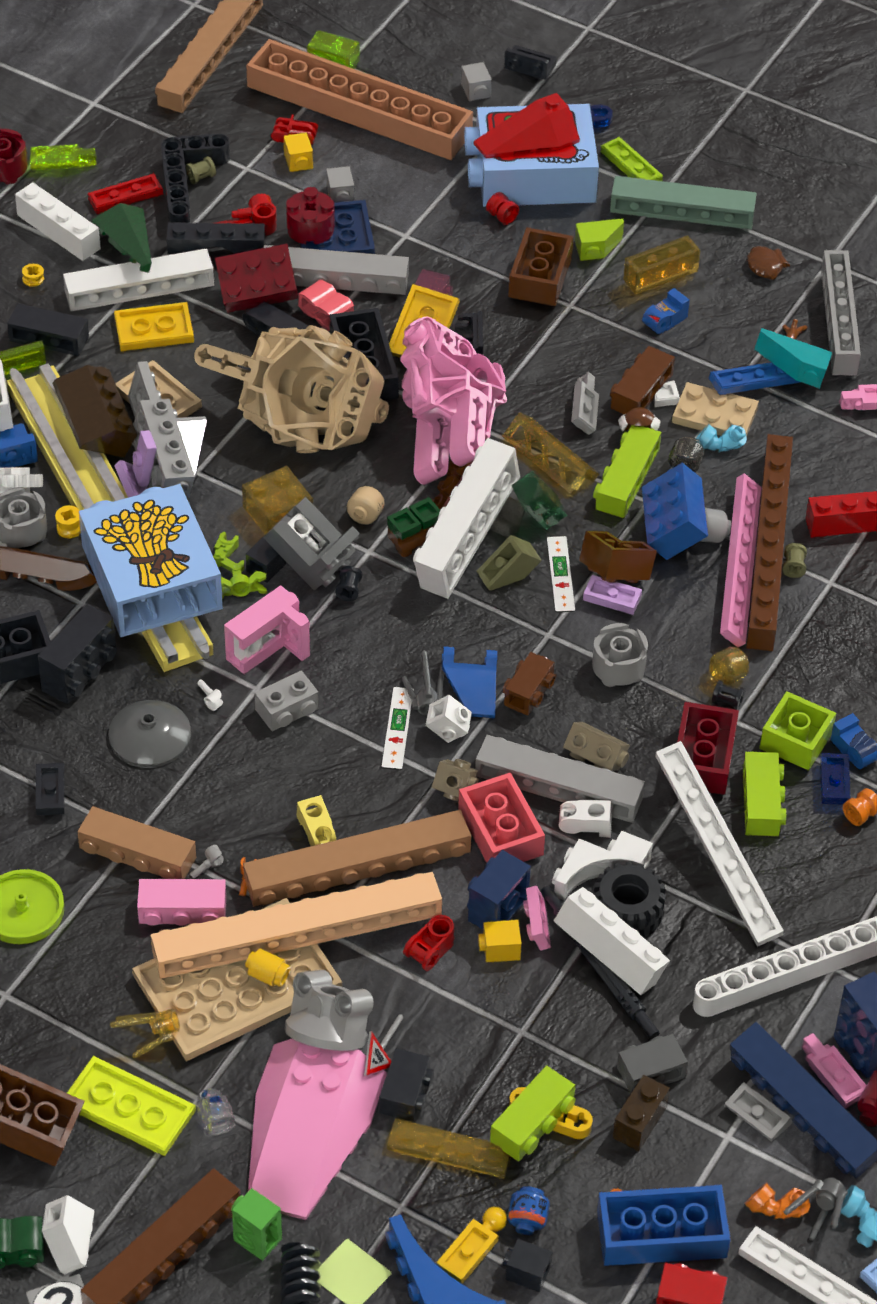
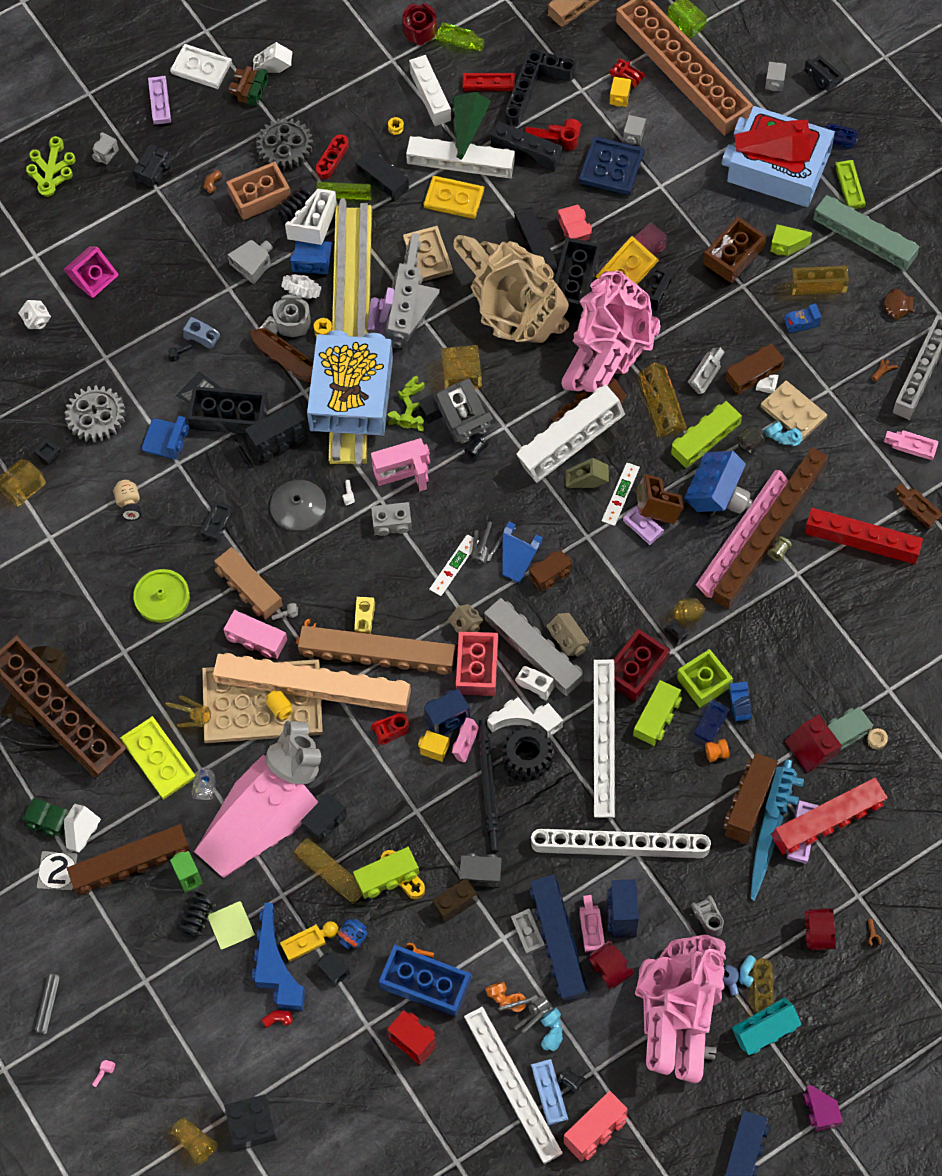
camera: 30 degrees right, 15 degrees up
(95, 410) = (377, 253): dark brown slope -> none
(200, 170) = (547, 82): olive bush -> none
(256, 277) = (534, 188): dark red brick -> none
(310, 216) = (595, 151): dark red brick -> none
(350, 270) = (594, 198): light grey brick -> none
(367, 504) = (517, 392): tan head -> none
(376, 1056) = (315, 790): piece -> none
(410, 526) = (532, 426): dark green hips -> none
(448, 718) = (484, 575): white brick -> none
(502, 208) = (736, 190): red wheel -> none
(539, 500) = (629, 437): clear green brick -> none
(611, 940) = (498, 777): white brick -> none
(619, 655) = (622, 583): light grey brick -> none
(639, 417) = (734, 399): reddish brown hair -> none
(749, 378) = (837, 395): blue tile -> none
(796, 358) = (871, 395): teal slope -> none

